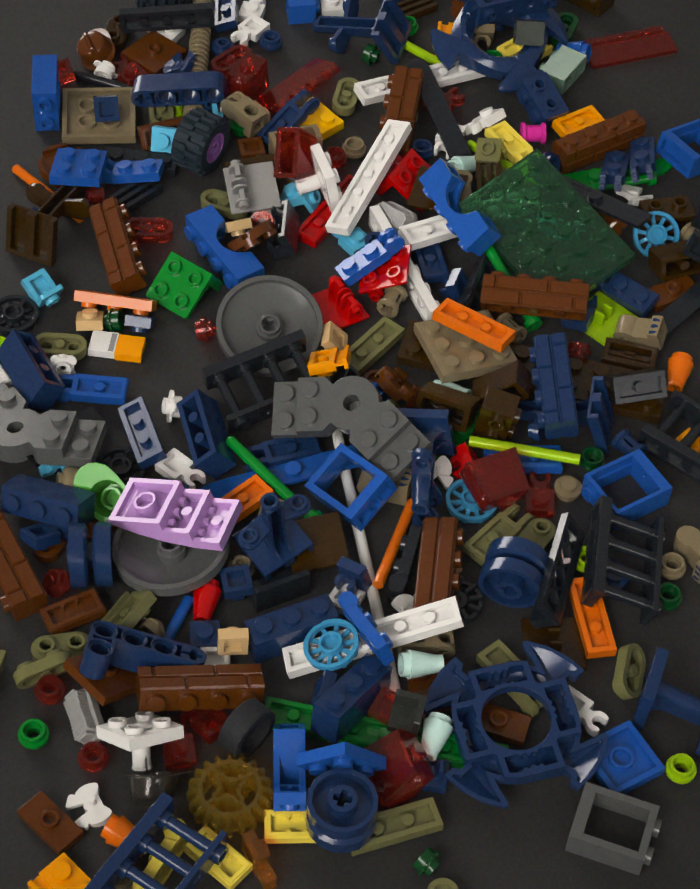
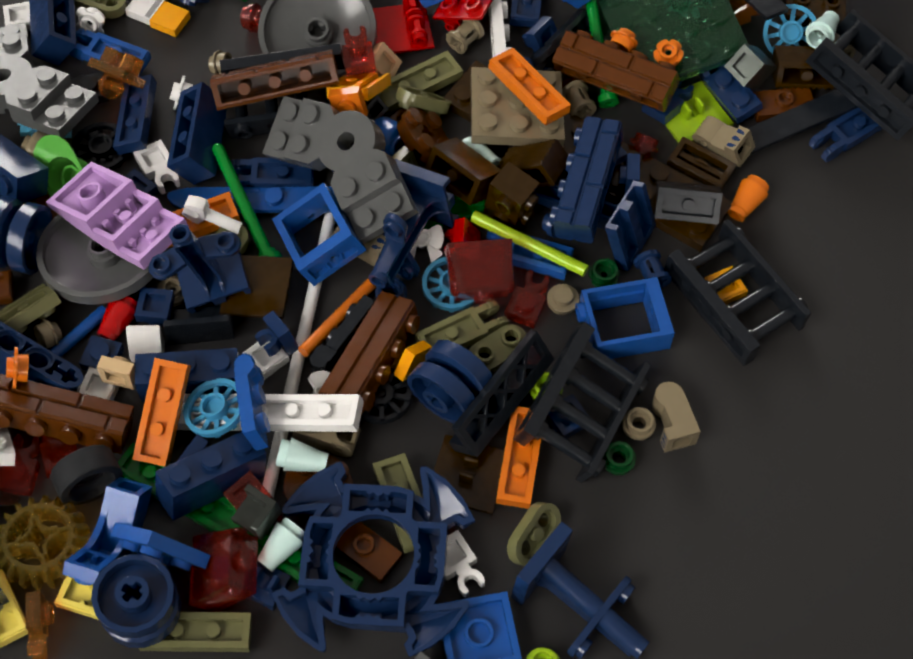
camera: 20 degrees right, 10 degrees up
(110, 405) = (117, 69): none -> clear orange hips
(156, 655) = (17, 367): none -> orange plate
(194, 374) = (214, 61): none -> dark tan plate
(238, 611) = (144, 340): none -> white slope
(242, 491) = (197, 210): none -> white bar
(262, 370) = (274, 79): none -> reddish brown brick
(289, 660) = (161, 412): none -> orange plate
(318, 336) = (358, 53): none -> clear red plate
(332, 370) = (348, 99): none -> orange plate
(377, 360) = (422, 99): none -> olive plate
(472, 565) = (411, 358): none -> light orange tile
(533, 269) = (625, 39): none -> orange plate
(565, 274) = (673, 46): none -> orange plate
(582, 375) = (630, 171): none -> dark blue plate
(639, 268) = (750, 66): none -> pearl dark grey panel
(683, 226) = (821, 28): none -> light aqua cone

